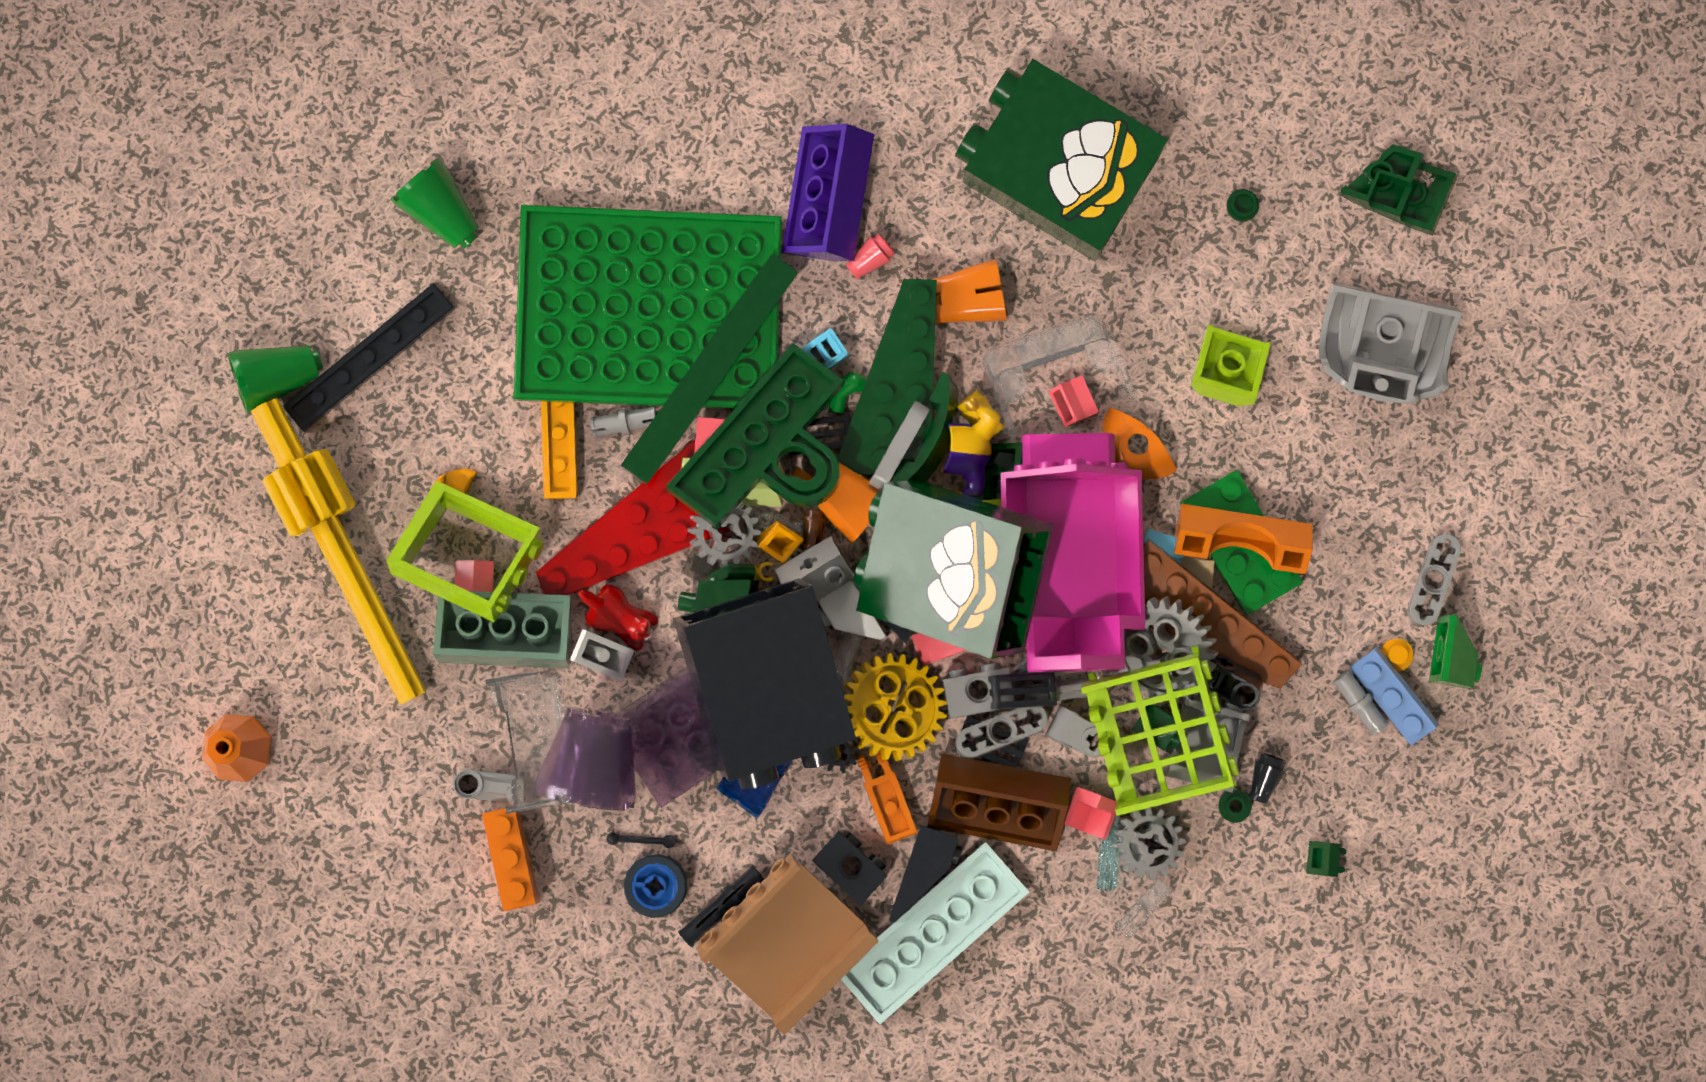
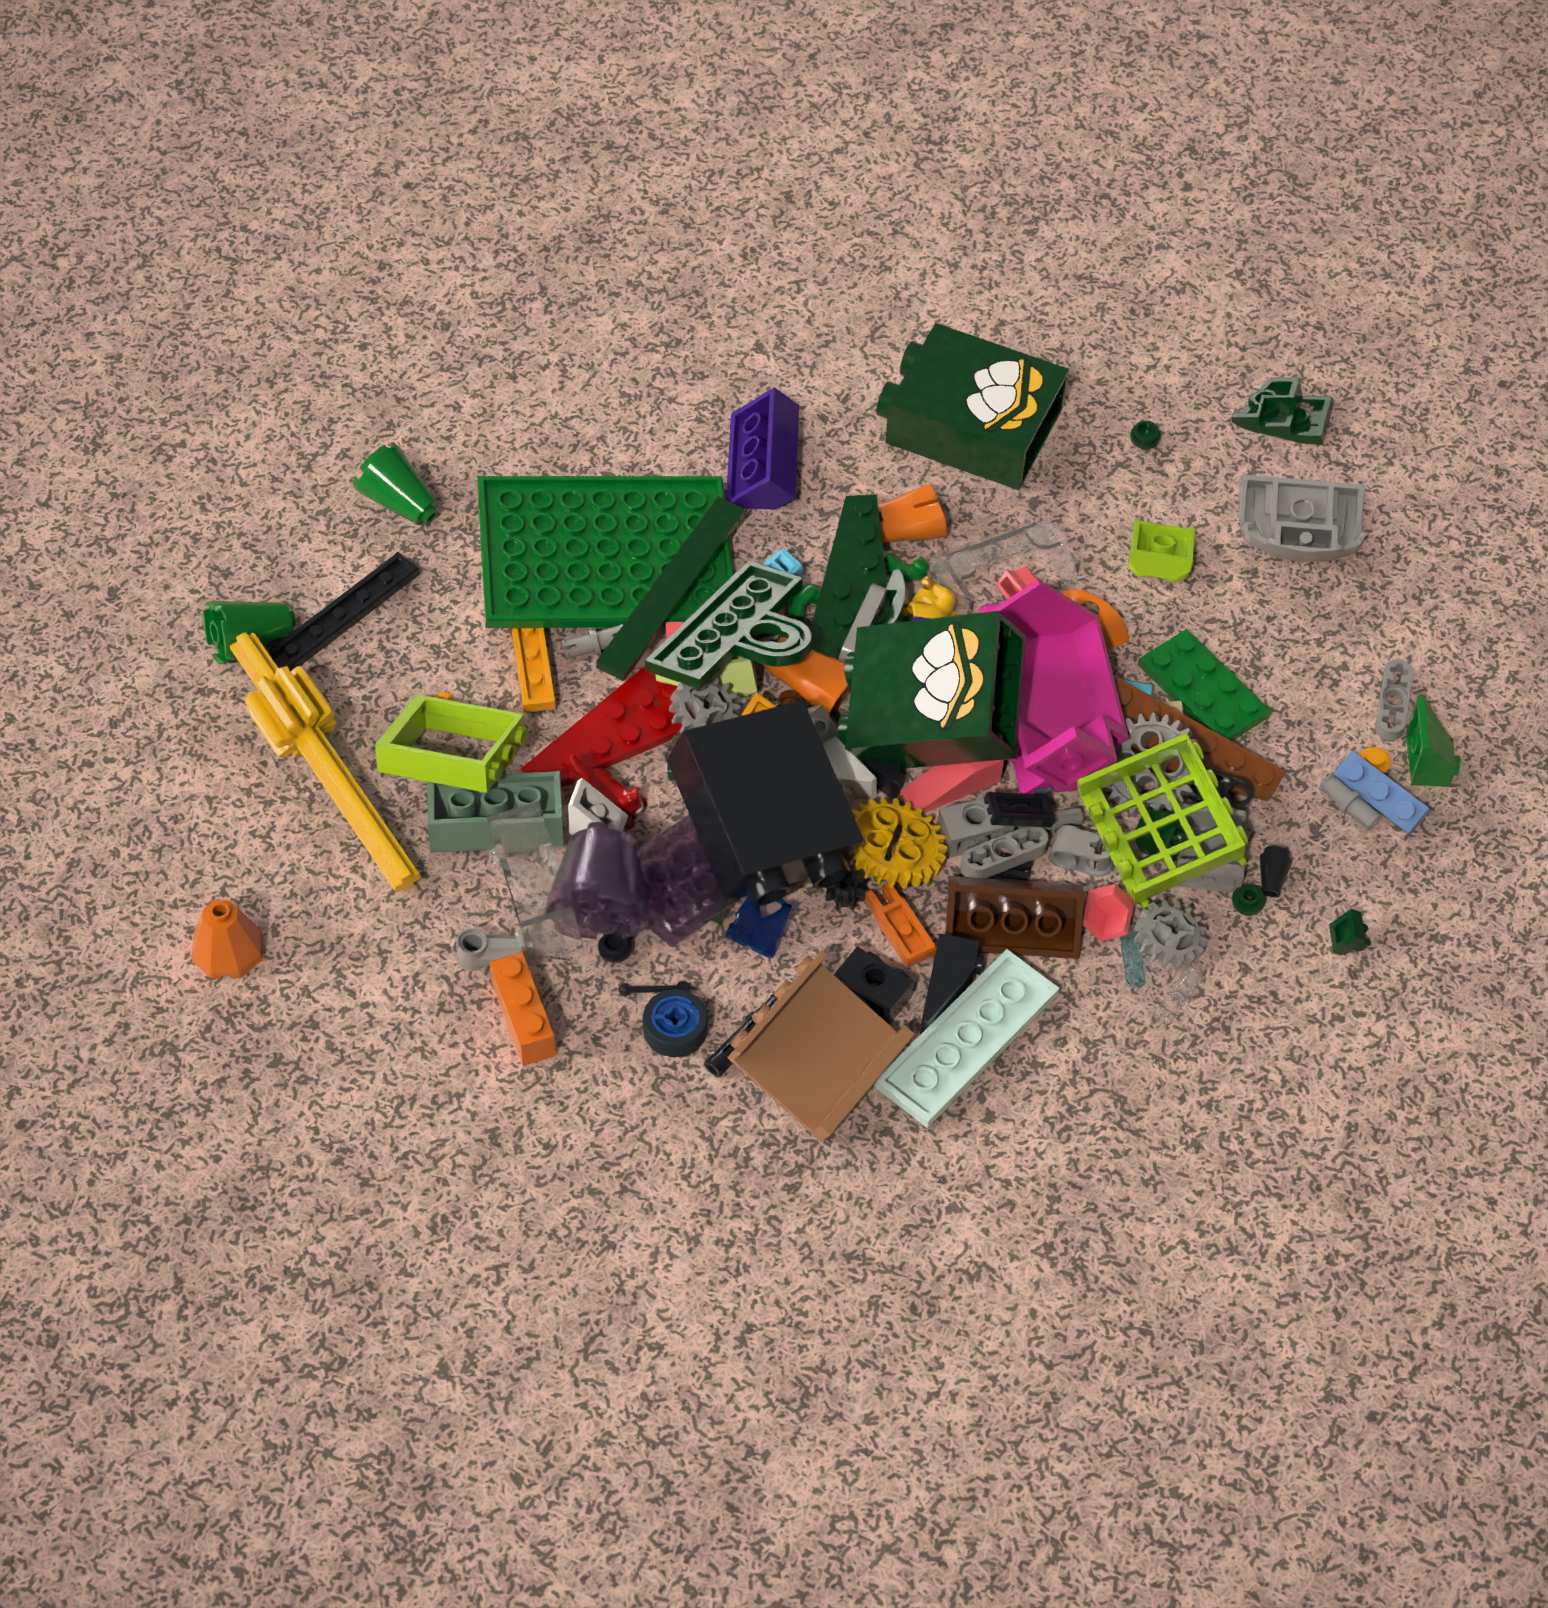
camera: 15 degrees left, 30 degrees down
(870, 256) = (812, 496): coral cone -> none
(957, 361) = (910, 572): none -> green arm
(1281, 542) = (1223, 664): orange arch -> none

